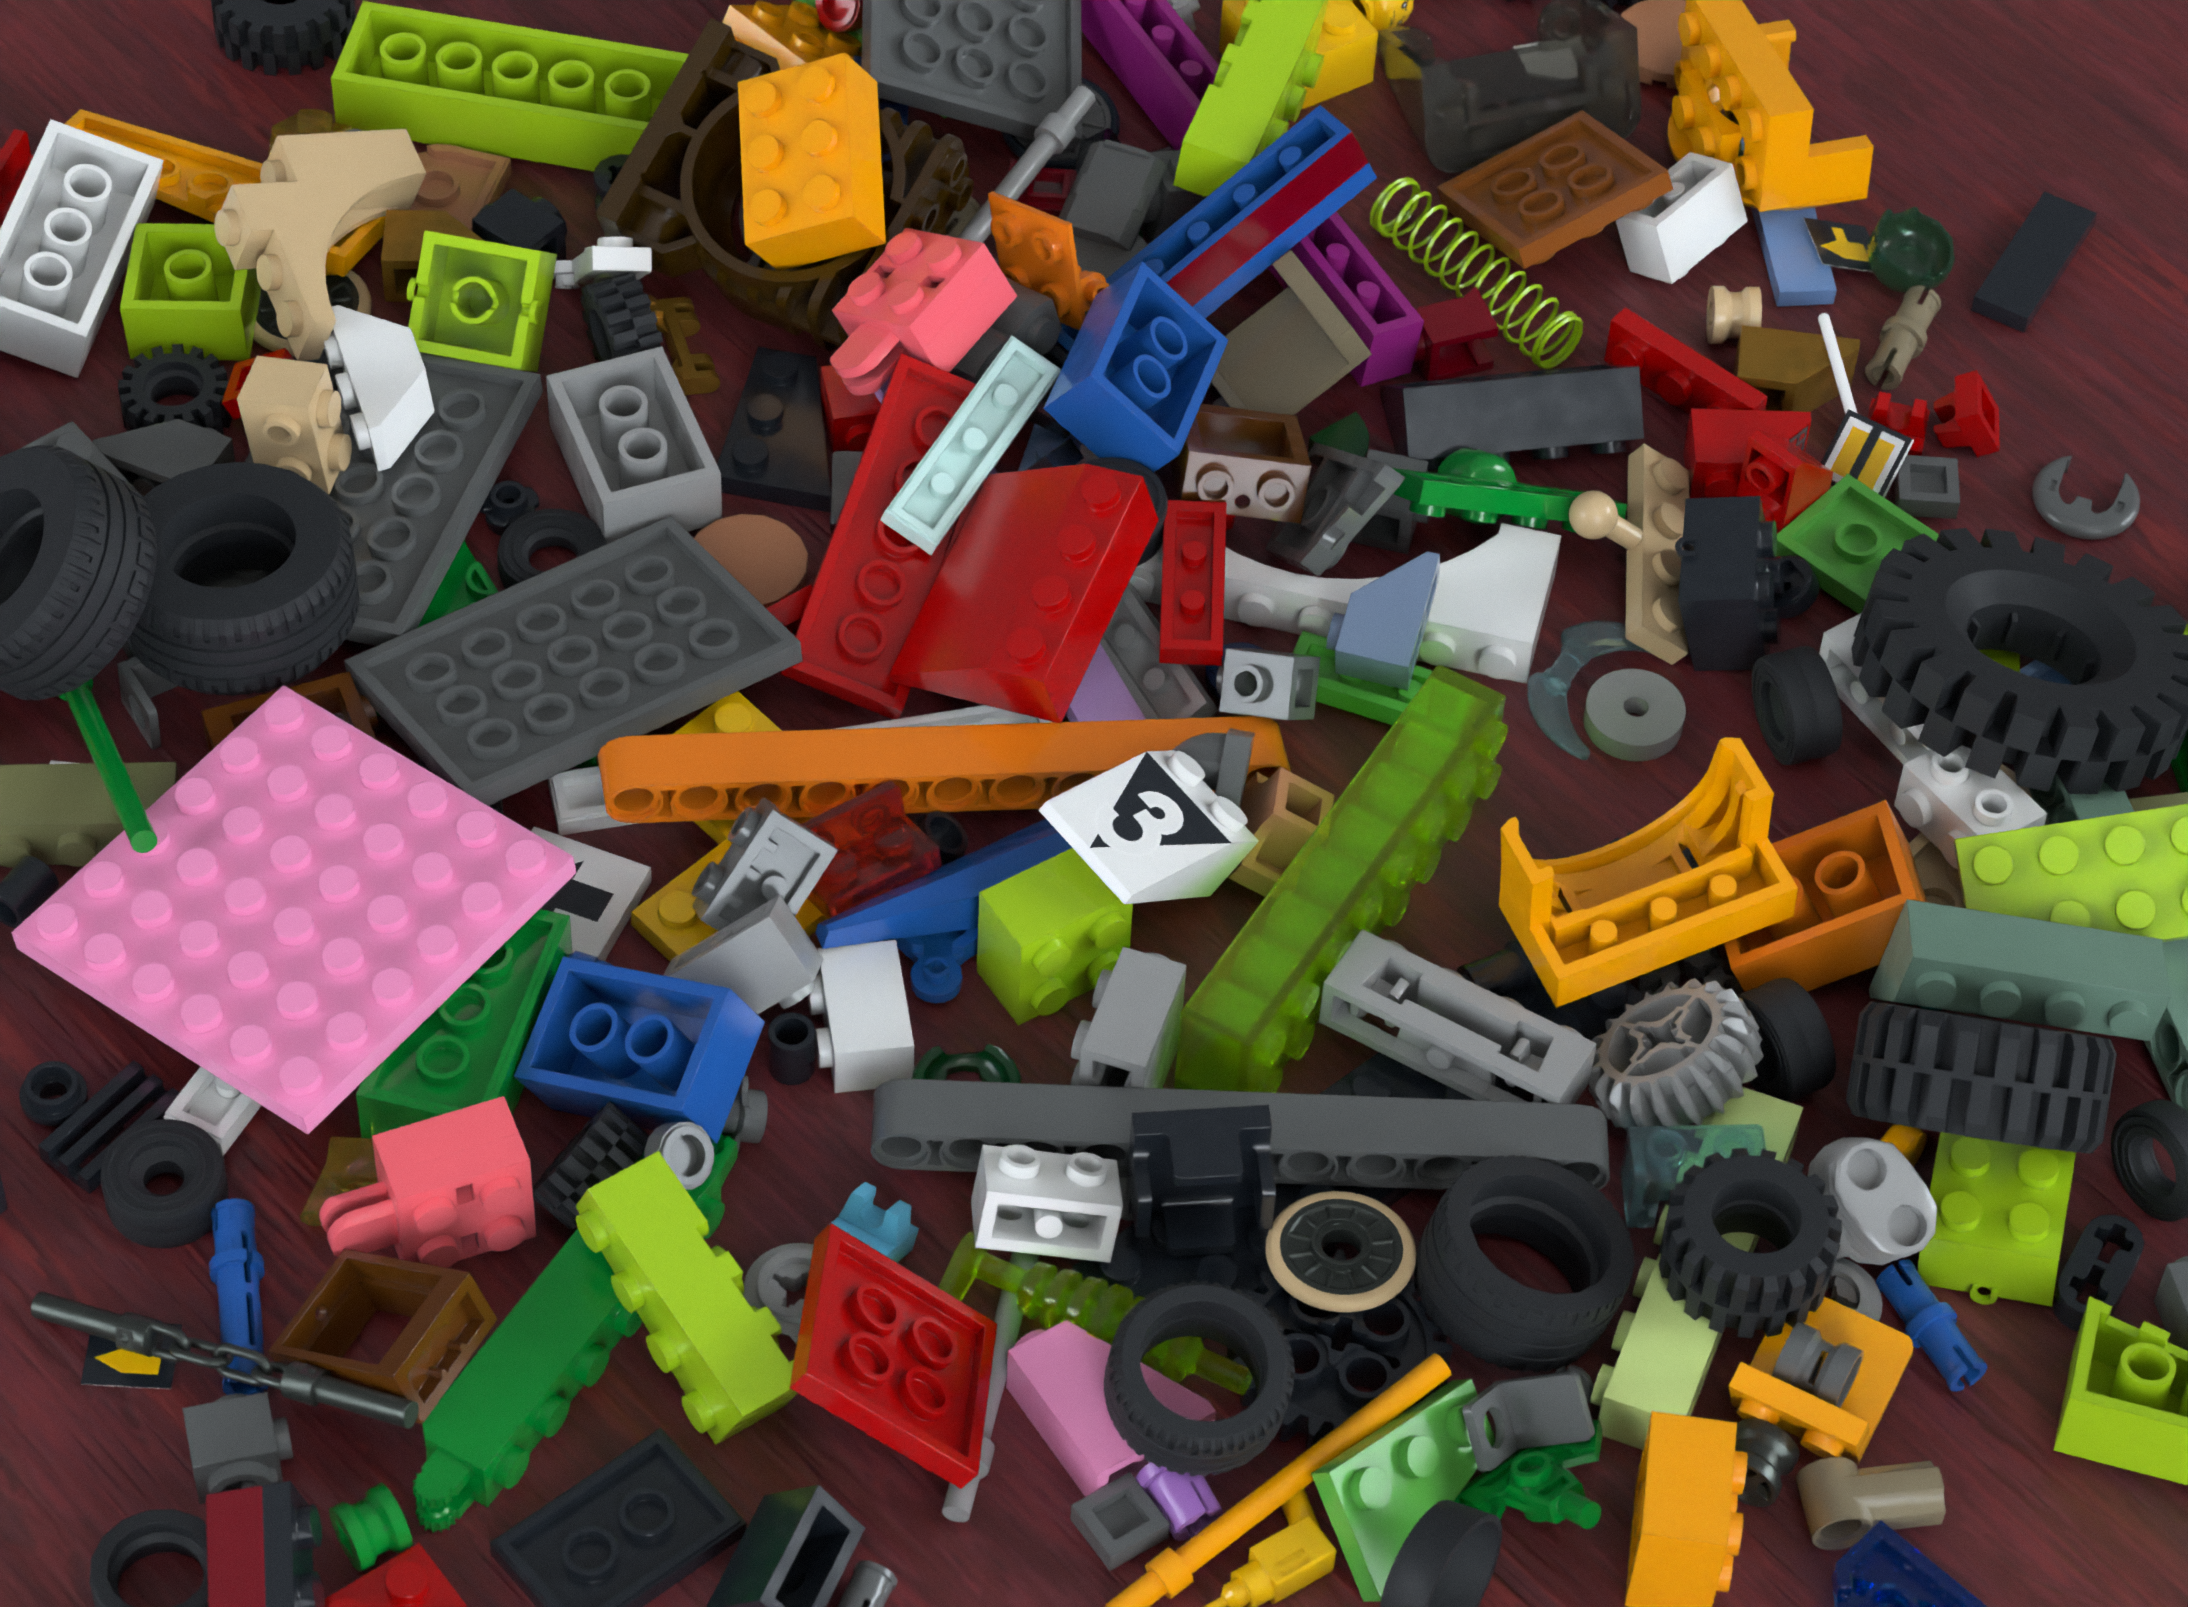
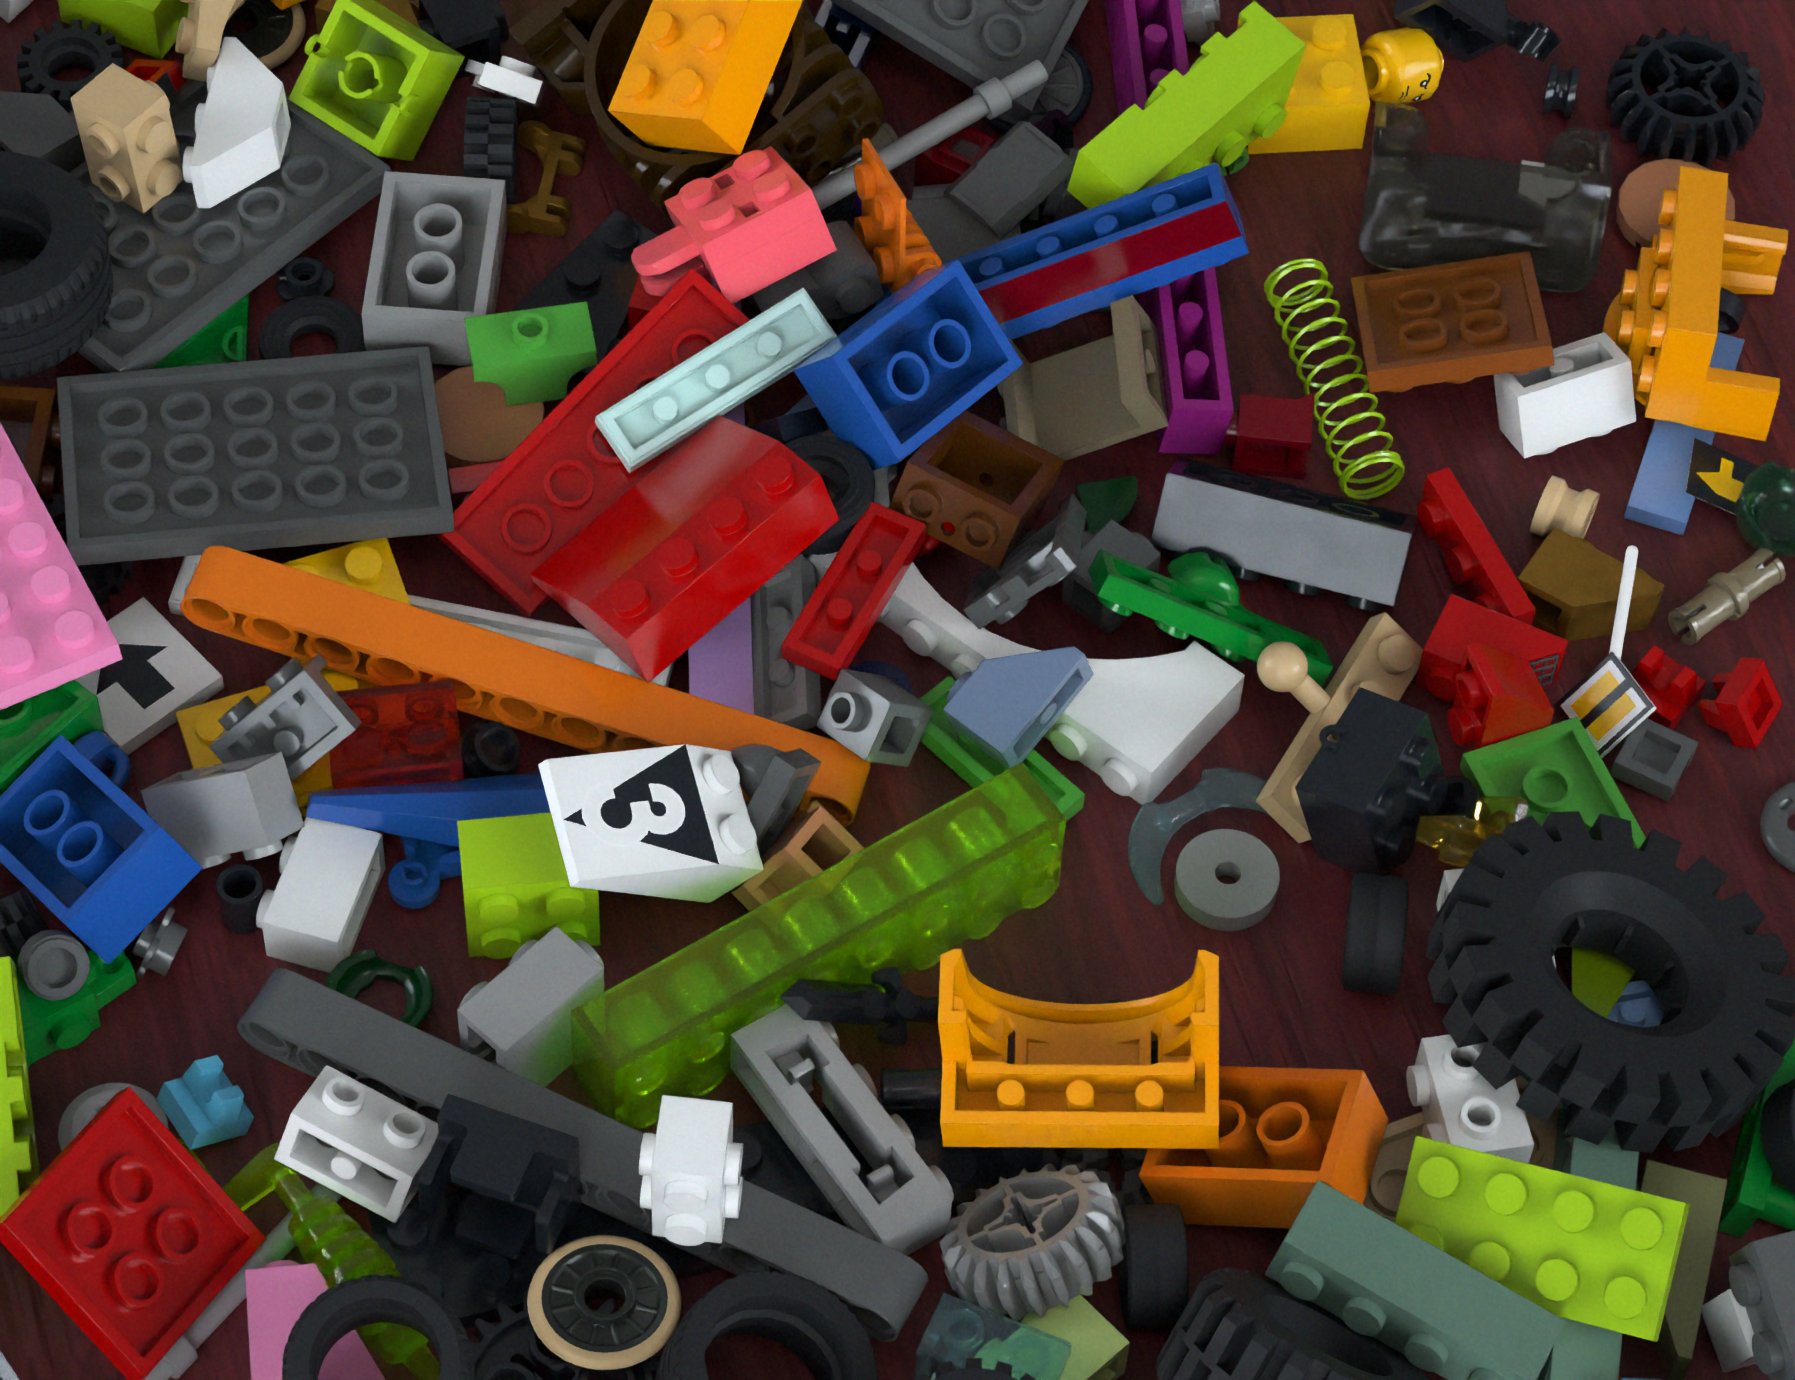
camera: 25 degrees right, 5 degrees up
(776, 483) = (531, 350): none -> bright green brick
(1382, 1094) = (691, 1170): none -> white brick
(1418, 918) = (863, 1004): none -> black sword
(1835, 593) = (1461, 836): none -> clear yellow bracket

